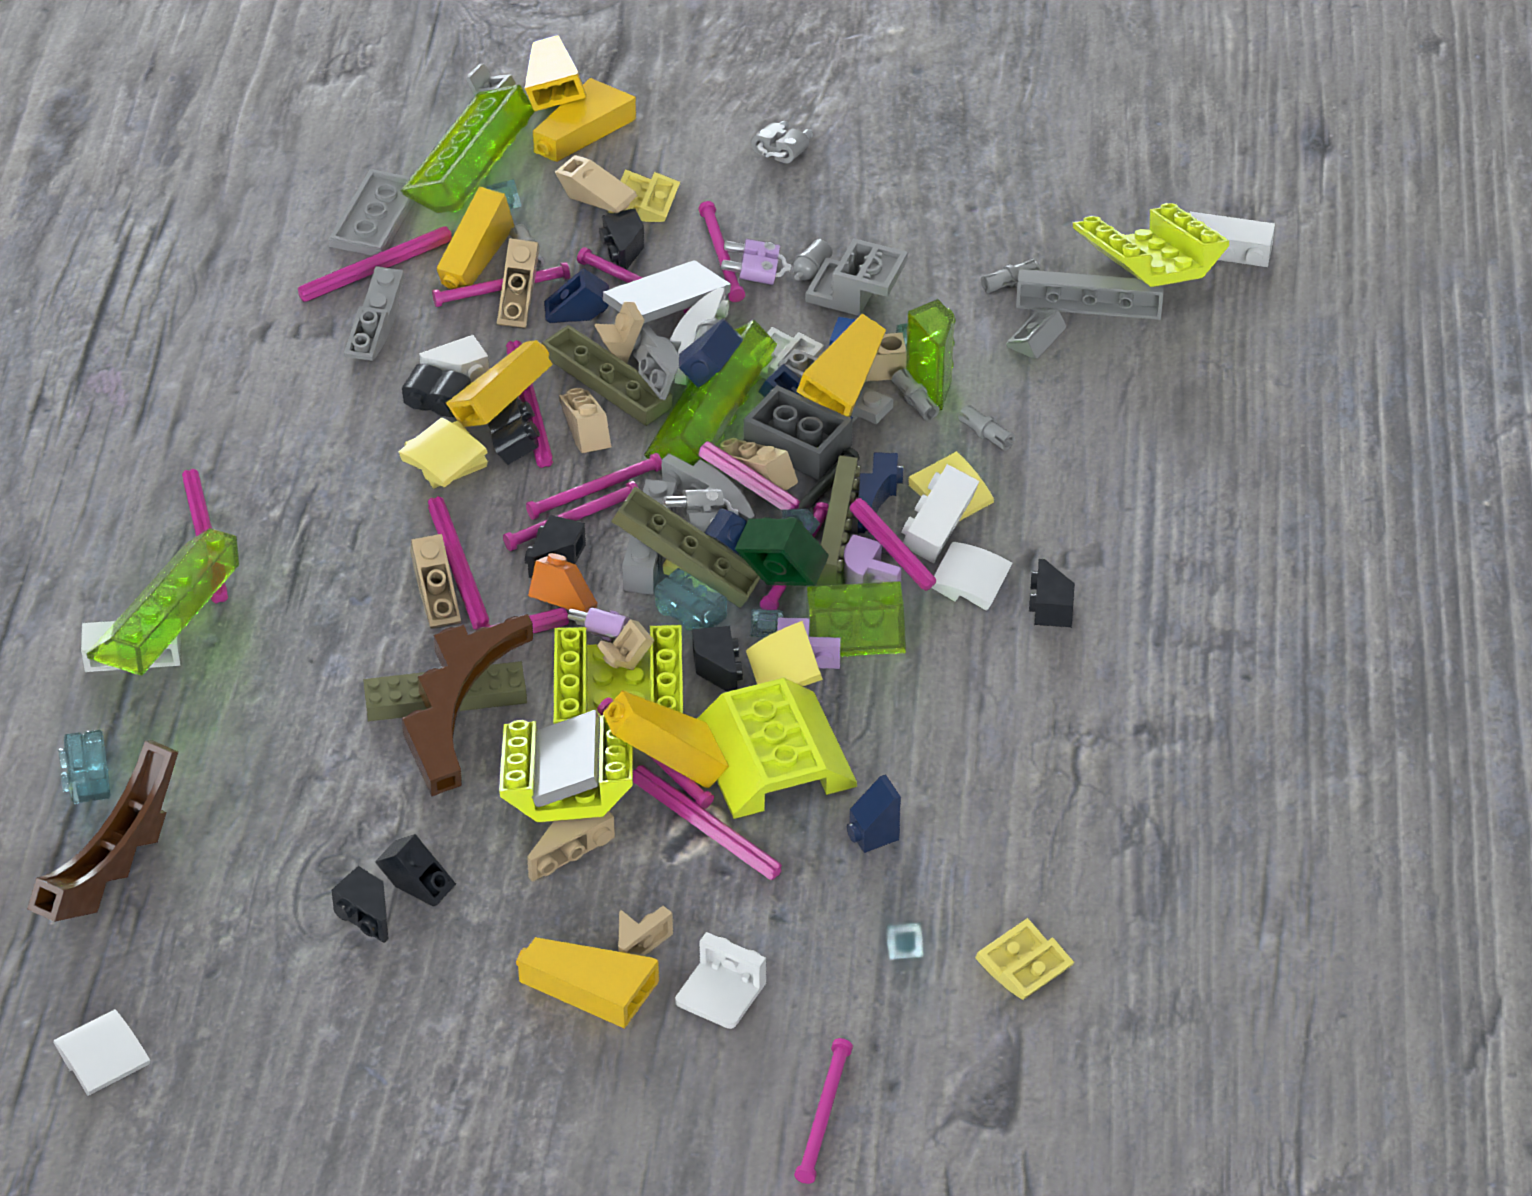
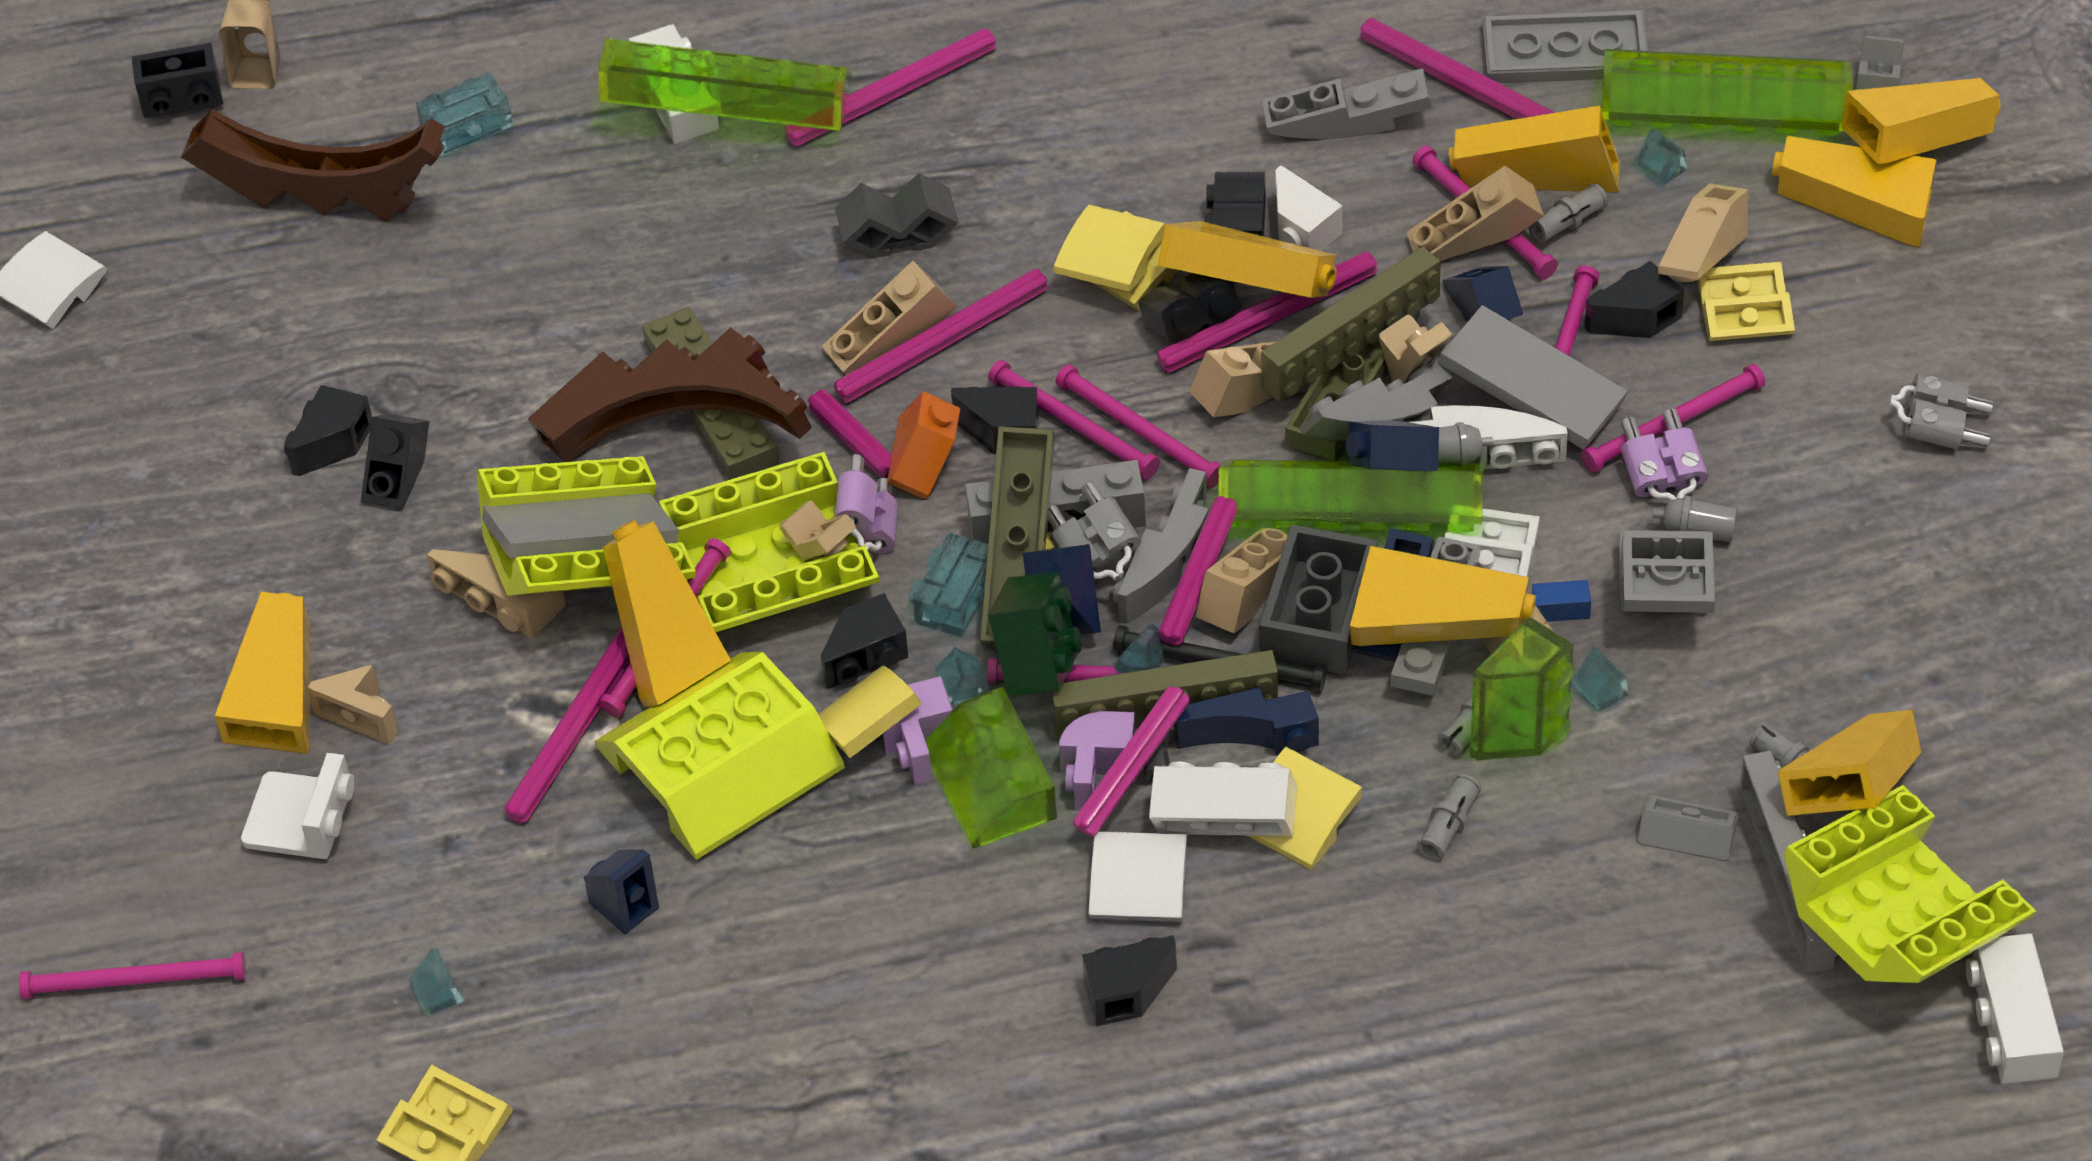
camera: 75 degrees right, 5 degrees up
(343, 552) = (914, 216): none -> dark grey brick
(589, 351) = (1350, 324): none -> olive piece
(1052, 234) = (1852, 766): none -> yellow slope

